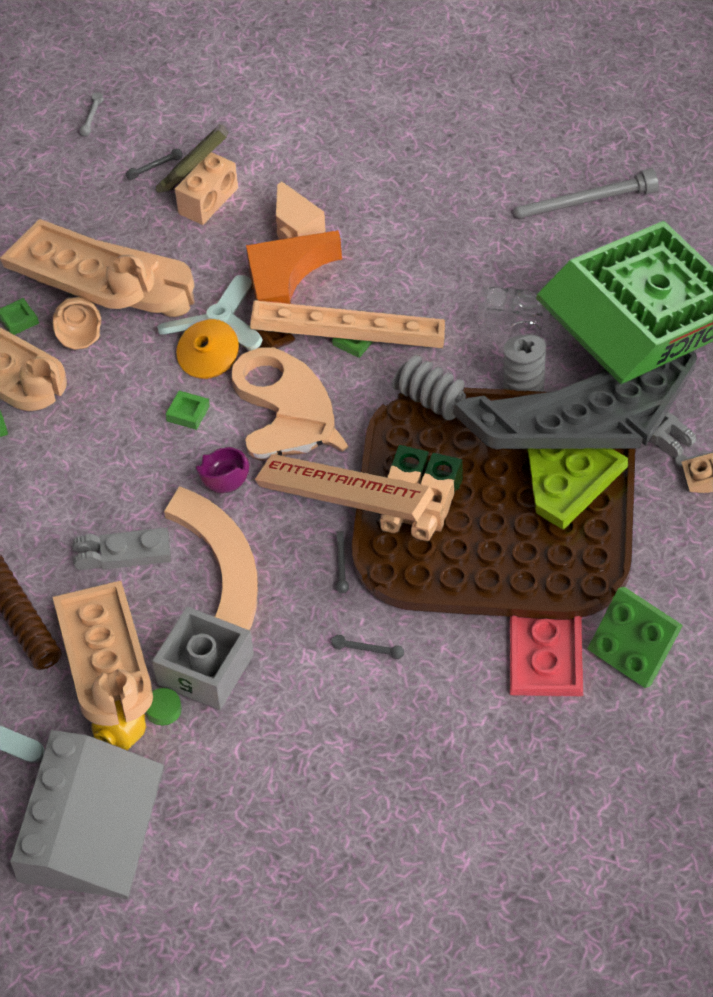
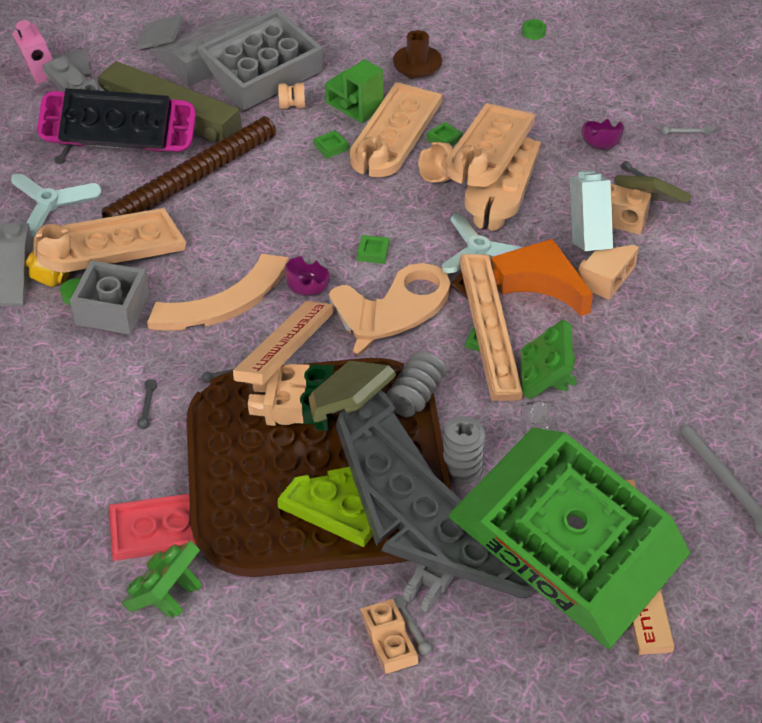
camera: 75 degrees right, 5 degrees down
(81, 177) = (602, 135): none -> magenta hair
(122, 549) = (223, 242): light grey hinge -> none
(215, 356) = (439, 246): light orange dish -> none
(232, 198) = (591, 211): none -> light aqua brick
(417, 284) = (548, 361): none -> bright green plate
(453, 427) = (349, 388): none -> olive tile

